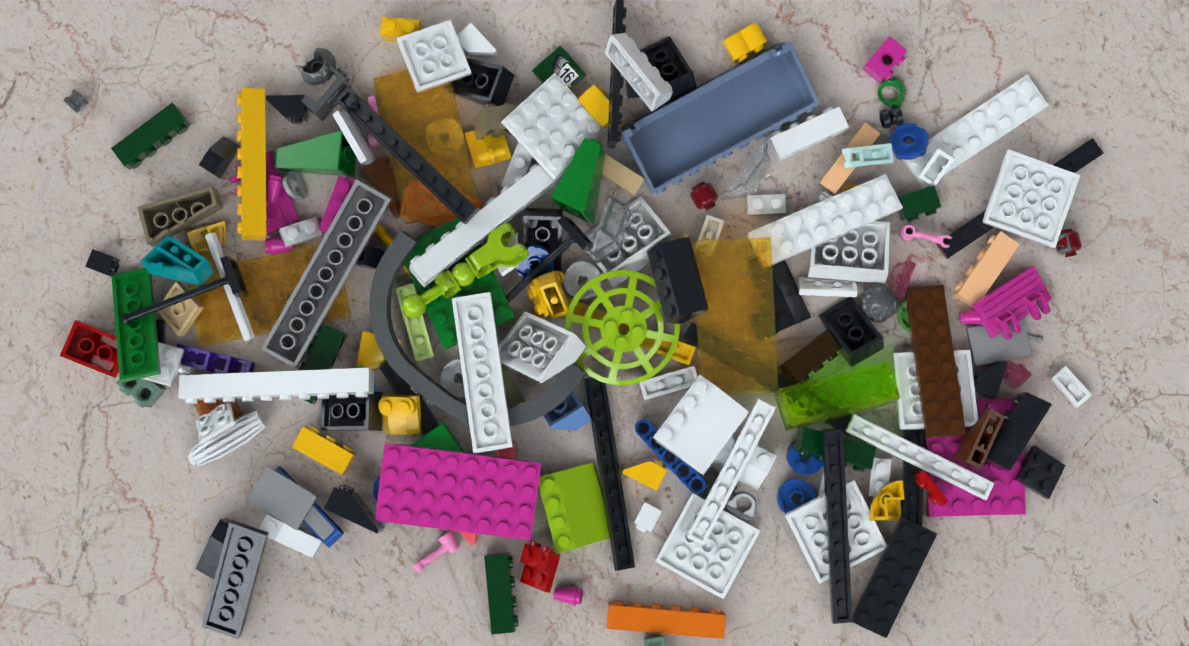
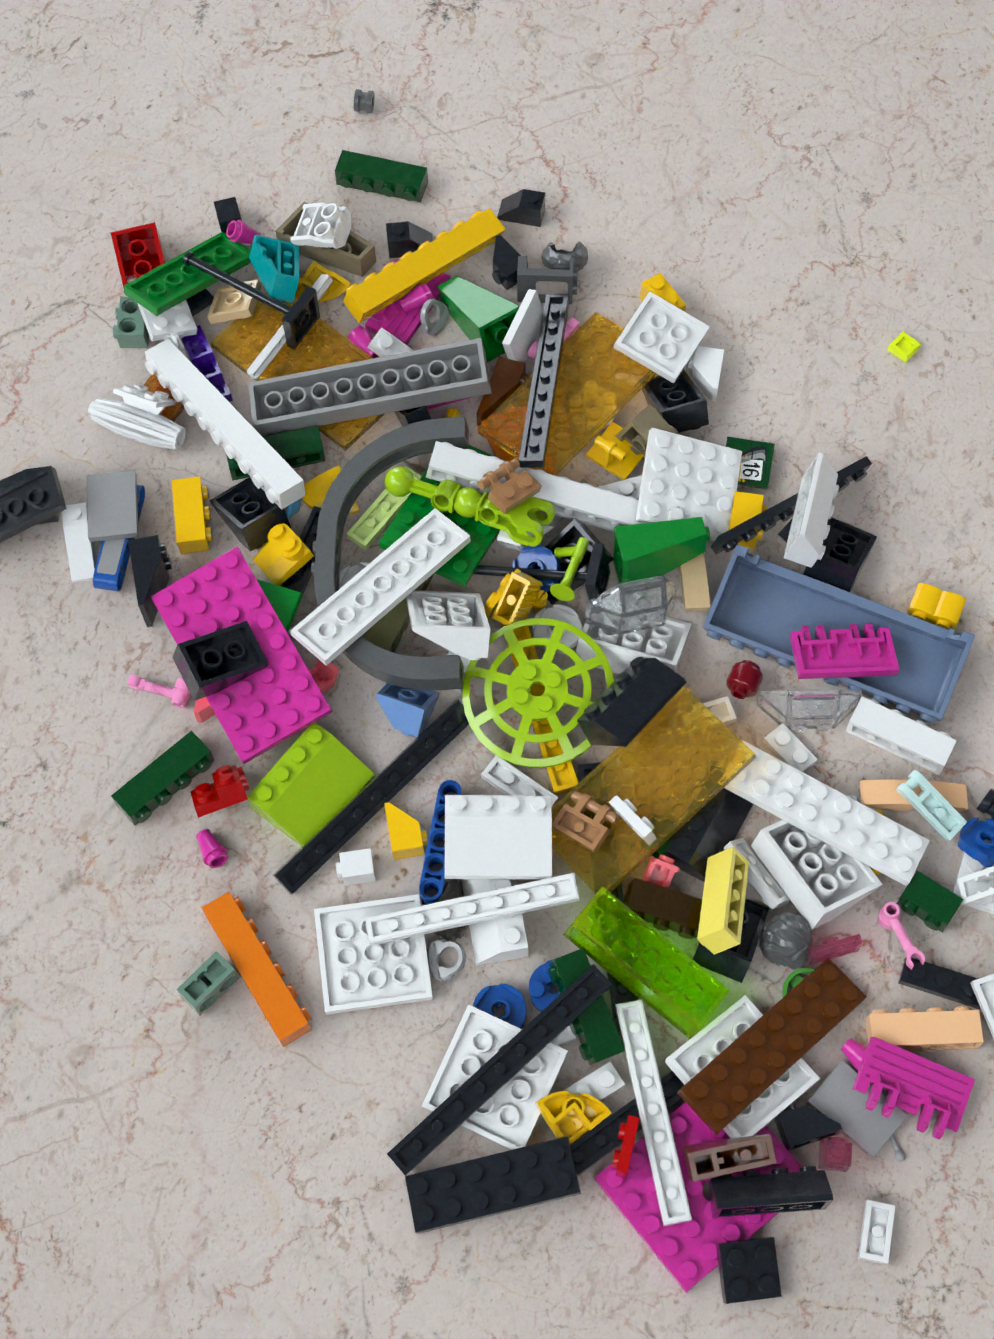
camera: 55 degrees right, 20 degrees down
(126, 264) = (241, 232): none -> dark pink cone
(172, 211) = (323, 226): none -> white slope
(253, 62) = (523, 207): none -> black slope
(458, 509) = (219, 659): none -> black slope
(482, 240) = (512, 492): none -> medium nougat plate
(549, 232) = (563, 590): none -> lime piece
(730, 370) = (580, 827): none -> medium nougat plate
(736, 124) = (843, 653): none -> dark pink hinge
(744, 338) = (627, 810): none -> white plate
(786, 344) = (660, 870): none -> coral bracket
(837, 324) = (723, 901): none -> light yellow brick

